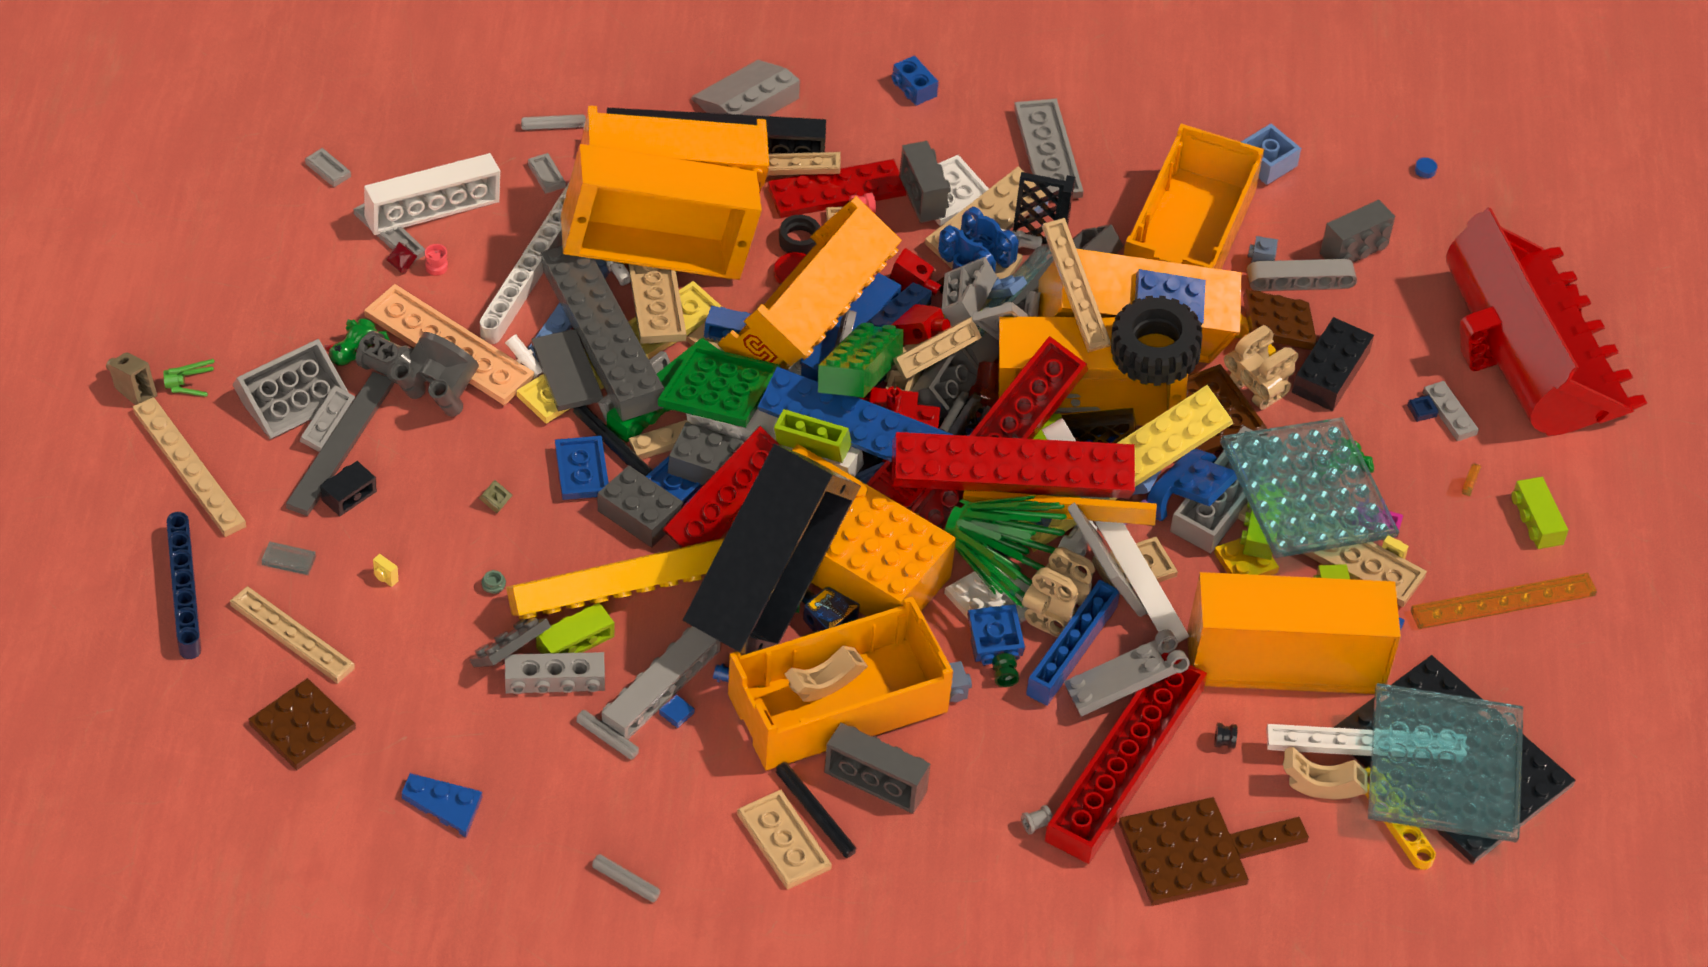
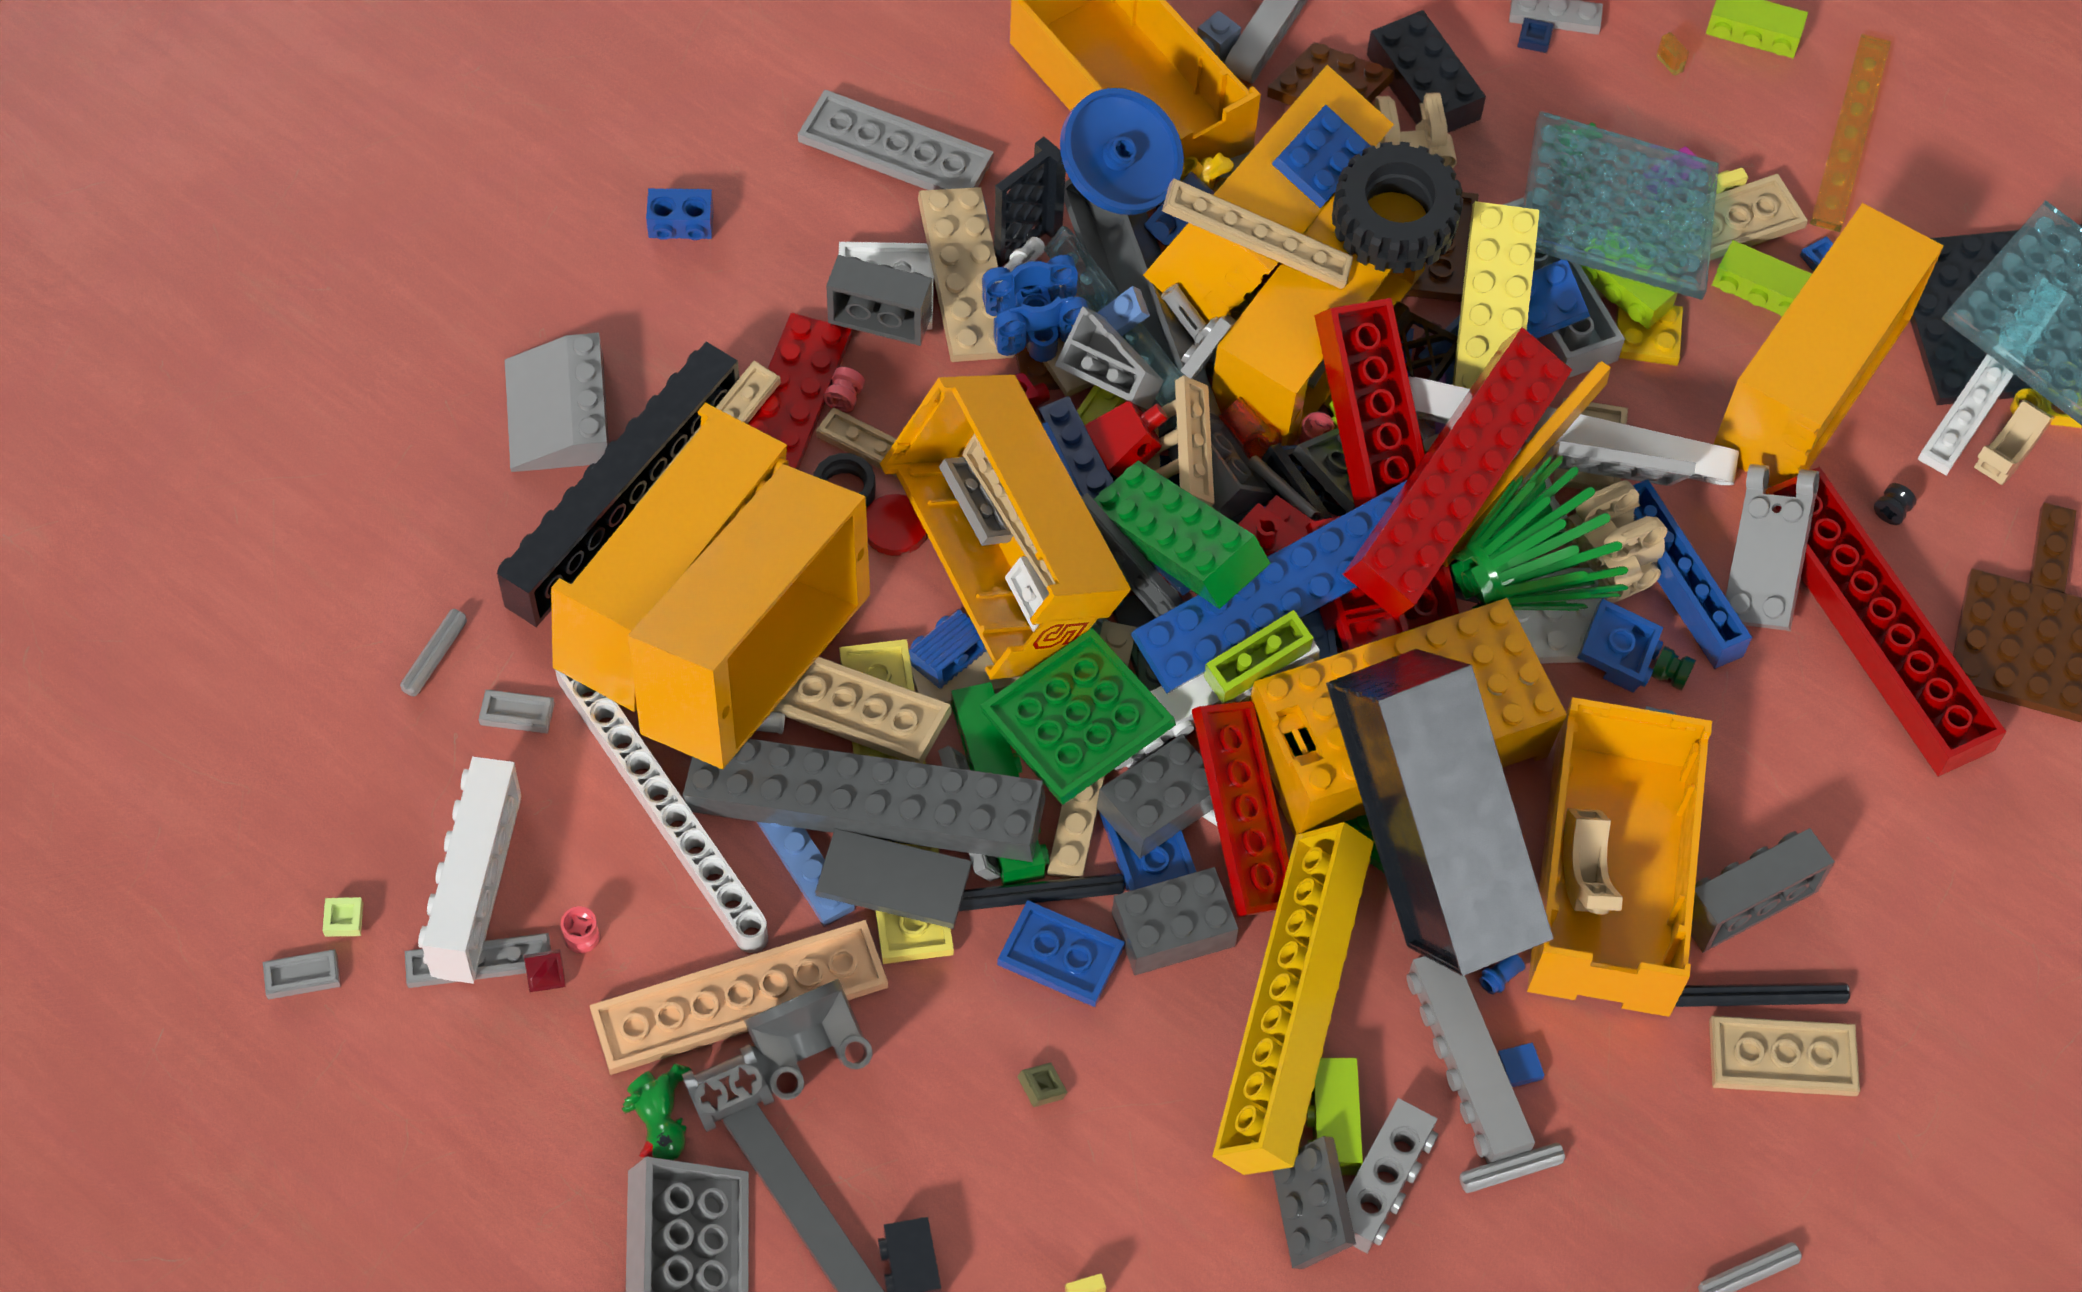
camera: 55 degrees left, 10 degrees up
(327, 418) = (771, 1223): light grey plate -> none
(370, 164) = (343, 917): none -> yellowish green plate
(493, 582) = (1183, 1167): sand green plate -> none
(524, 355) = (832, 915): white pin -> none
(1036, 819) = (1909, 765): light grey bush -> none
(1103, 214) = (1121, 151): none -> blue dish

